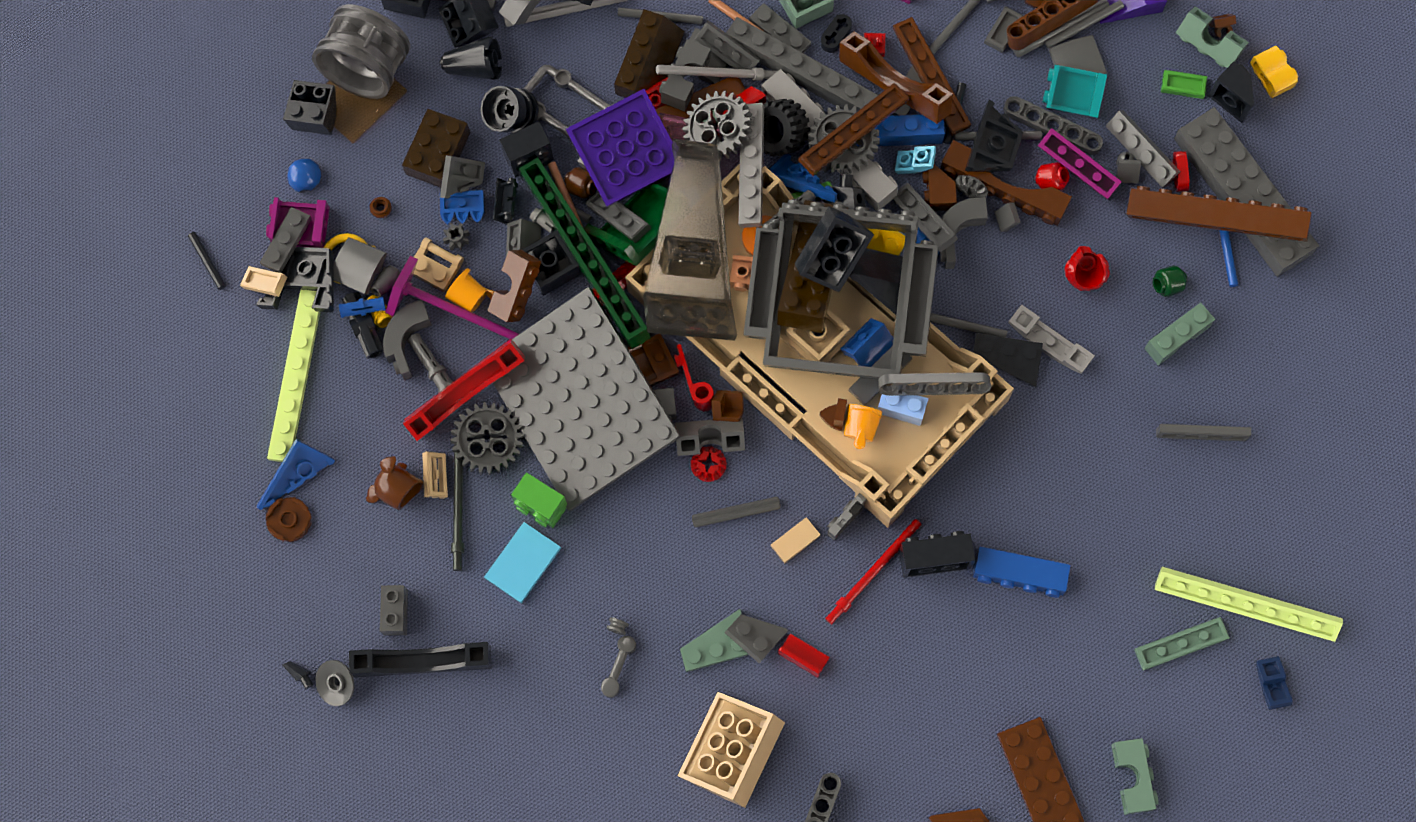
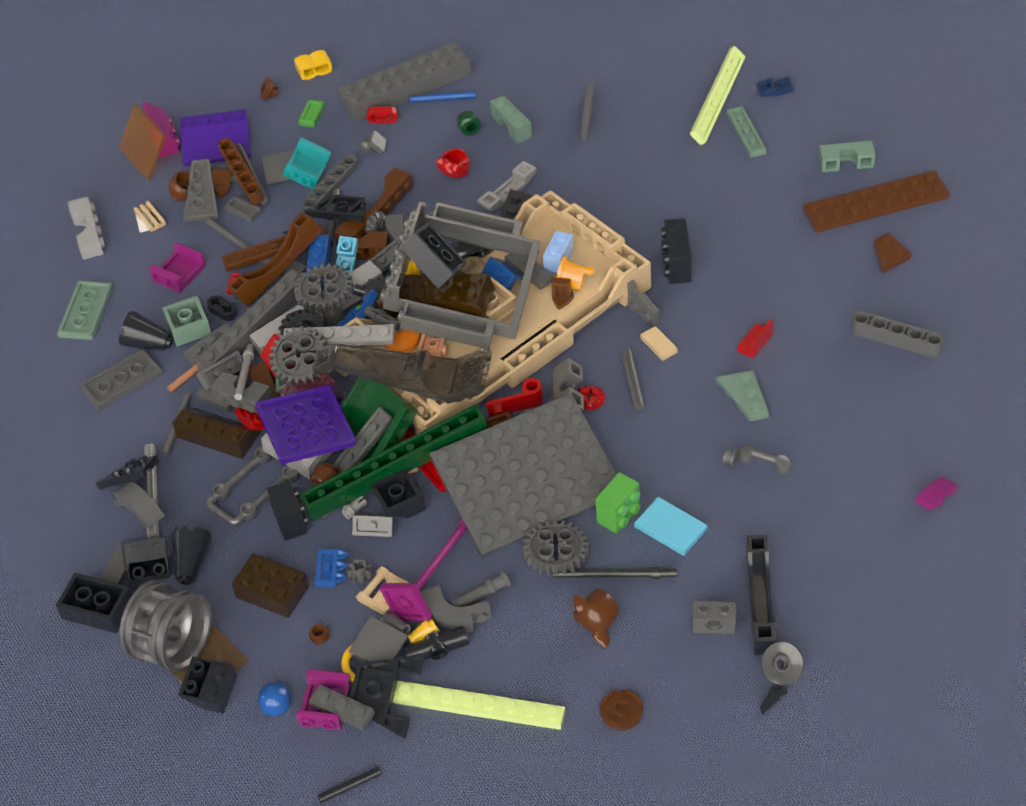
camera: 85 degrees left, 25 degrees down
(263, 281) = (380, 728): tan tile -> none
(299, 464) = (577, 702): blue wing -> none
(362, 307) = (421, 634): blue pin -> none
(431, 474) = (585, 587): tan tile -> none
(460, 175) = (302, 560): dark grey wing -> none
(463, 388) = (530, 585): red arch -> none
(467, 292) = (414, 560): light orange hat -> none
(503, 202) = (339, 533): black hinge -> none
(509, 109) = (254, 510): black wheel -> none
(522, 270) = (433, 524): arch -> none
(727, 406) = (546, 377): reddish brown panel -> none
(731, 749) = (834, 383): tan slope -> none
(755, 636) = (740, 365): dark grey wing -> none
(844, 604) = (712, 314): red bar -> none
(853, 129) = (319, 274): reddish brown tile -> none
(945, 386) = (546, 222): dark grey beam -> none
(1007, 217) = (402, 207): dark grey tile -> none
(1021, 571) = (692, 204): blue brick -> none
(1052, 175) = (374, 180): red head -> none
(1079, 164) = (367, 163): magenta brick -> none
(1084, 24) = (252, 159): dark grey bar -> none
(1142, 148) = (360, 131): plate -> none
(1195, 31) = (290, 84): sand green arch -> none
(1219, 214) = (423, 87): reddish brown brick -> none
(1234, 91) = (325, 78): black slope -> none

